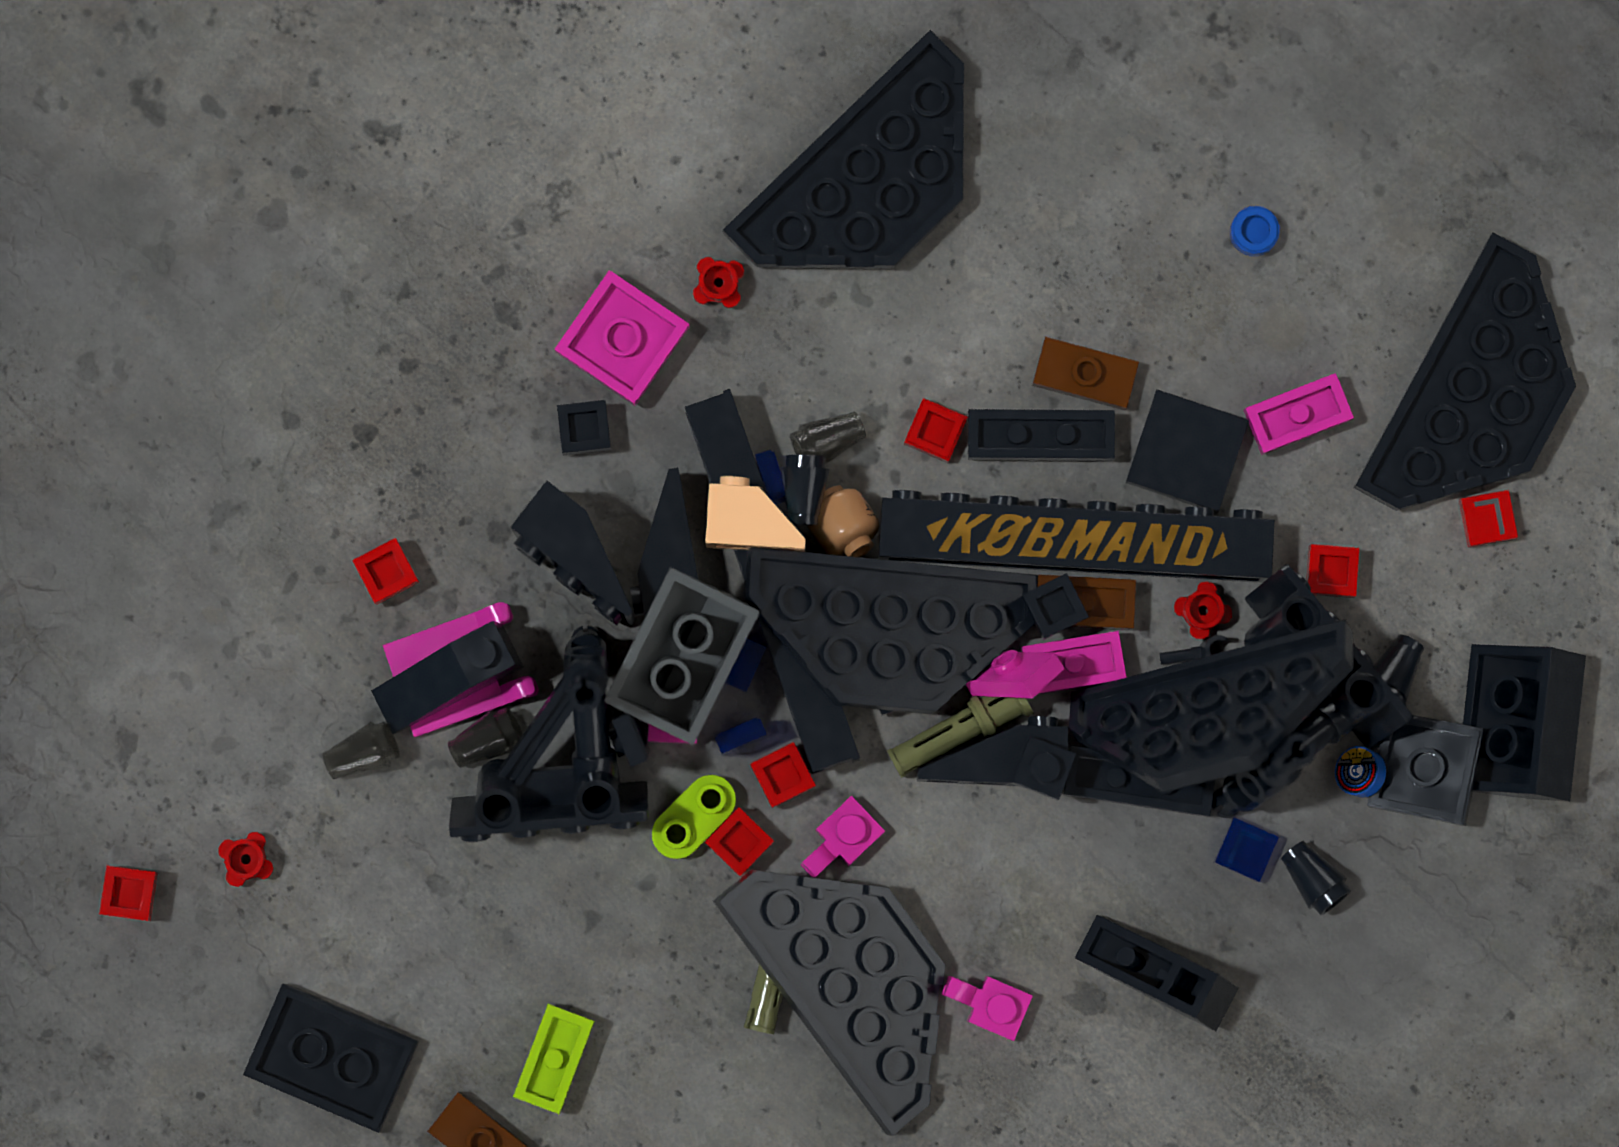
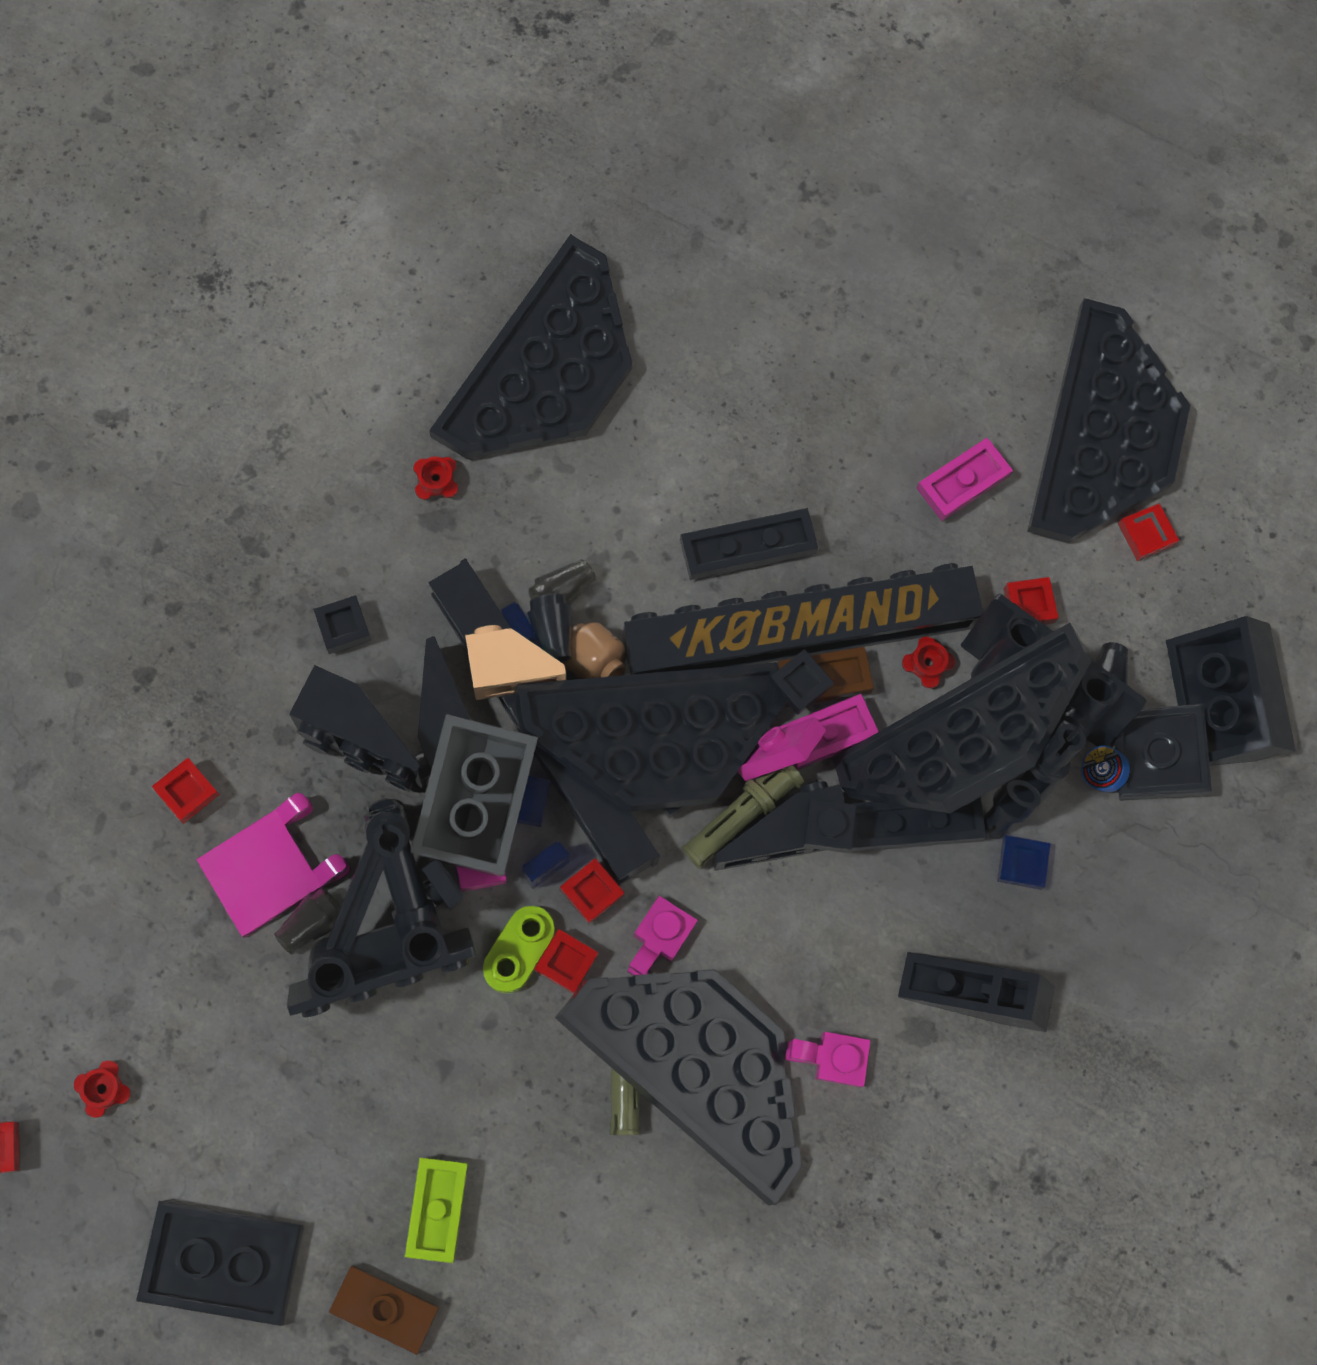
camera: 20 degrees left, 10 degrees down
(363, 751) = (195, 959): clear smoke cone -> none
(447, 676) = (261, 870): black slope -> none
(622, 338) = (360, 541): dark pink plate -> none
(935, 430) = (655, 561): red tile -> none
(1085, 373) = (773, 486): reddish brown plate -> none
(1187, 451) = (876, 531): black tile -> none
(1191, 654) = (939, 691): black hand -> none
(1254, 231) = (884, 342): blue tile -> none
(1315, 878) = (1093, 872): black cone -> none

